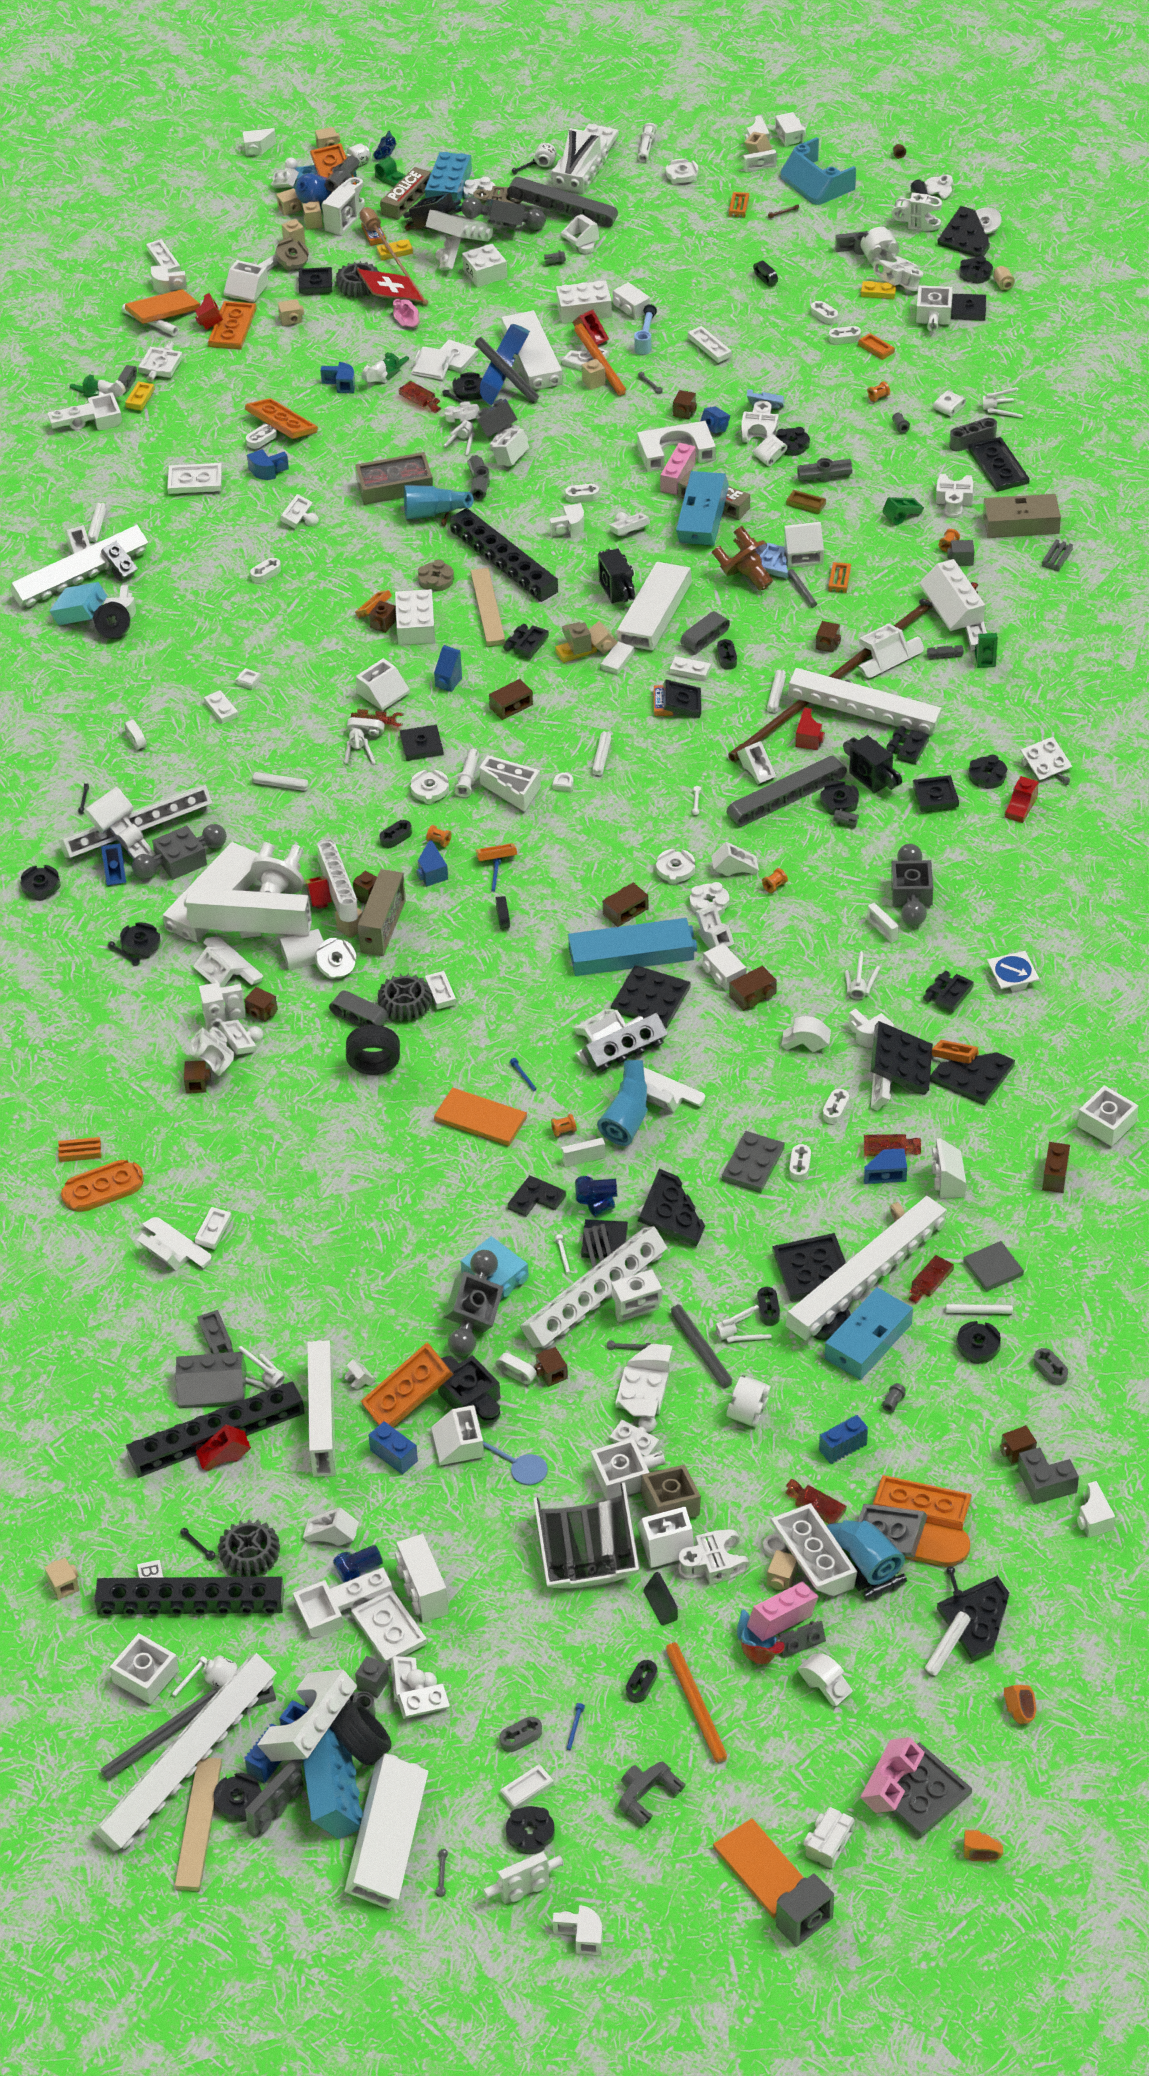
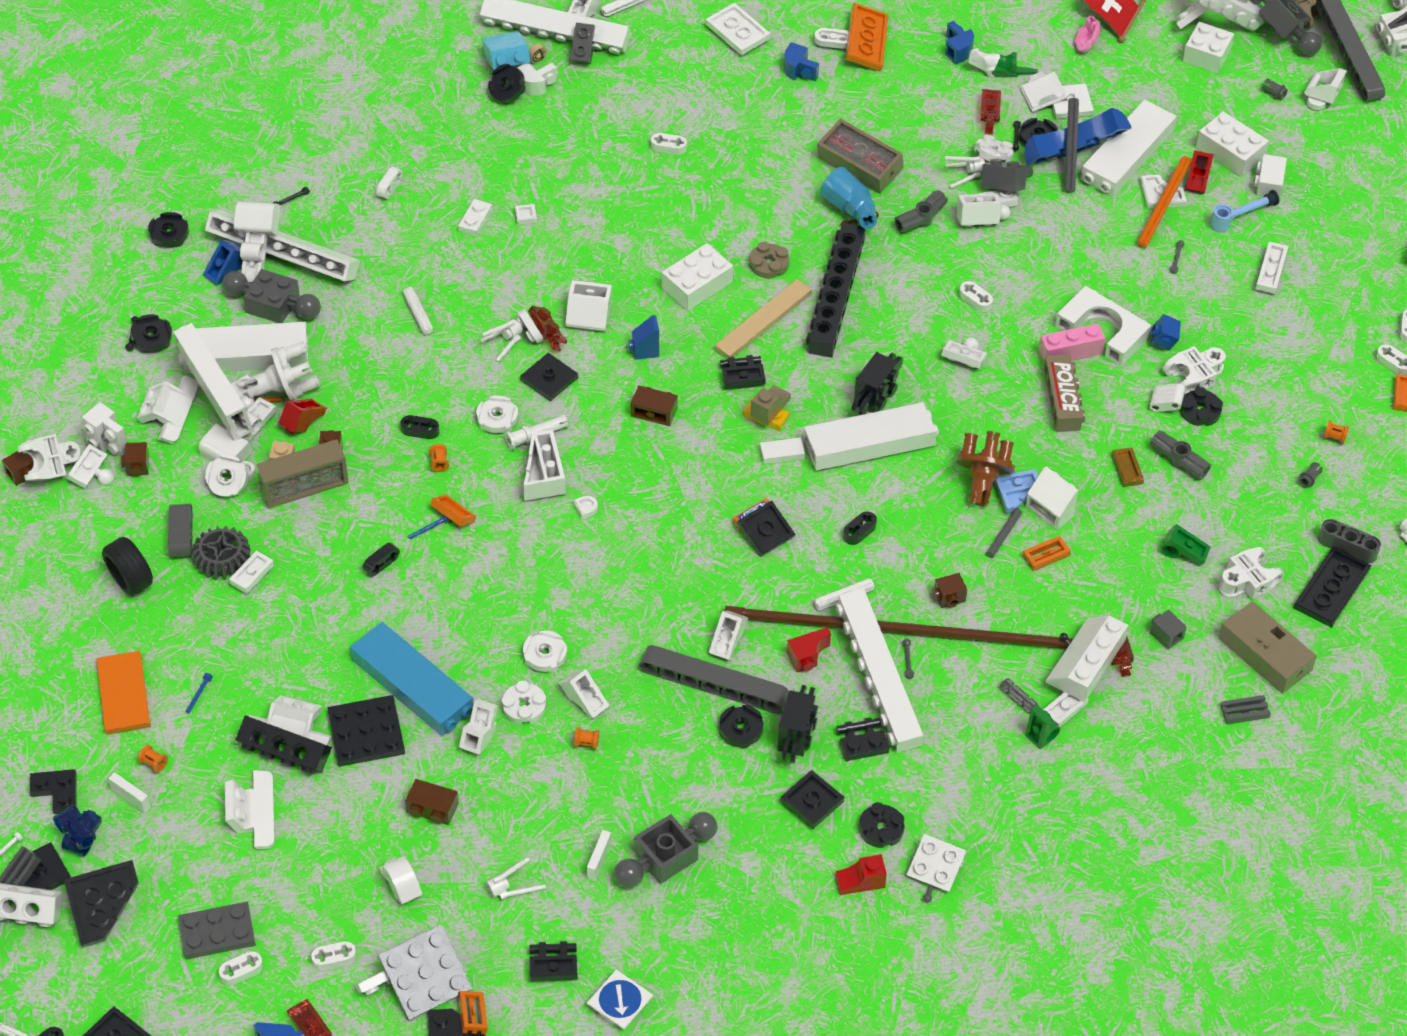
camera: 50 degrees right, 5 degrees up
(297, 511) = (758, 119): white plate -> none
(338, 880) = (309, 419): white beam -> none
(366, 608) = (690, 238): orange tile -> none
(382, 616) = (676, 251): reddish brown brick -> none
(431, 866) = (397, 474): blue slope -> none
(571, 523) = (925, 313): brick -> none
(593, 374) = (1139, 209): tan brick -> none
(601, 753) = (645, 512): white axle -> none
(602, 637) = (790, 422): tan brick -> none
(625, 904) = (462, 642): reddish brown brick -> none
(628, 1108) = (195, 793): dark azure piece -> none
(684, 404) = (1166, 298): reddish brown brick -> none
(690, 668) = (816, 512): white plate -> none
(697, 790) = (661, 611): white hinge -> none
(702, 508) = (1025, 392): dark azure brick -> none
(705, 632) = (871, 494): dark grey beam -> none
(723, 965) = (442, 762): white brick -> none
(775, 400) = (1232, 351): light blue wing -> none
(845, 817) = (716, 741): dark grey pin -> none
(865, 1028) = (456, 929): white brick -> none
(887, 649) = (972, 647): white plate -> none
(948, 537) = (1178, 608): orange bush -> none
(949, 403) = (1379, 497): white piece -> none

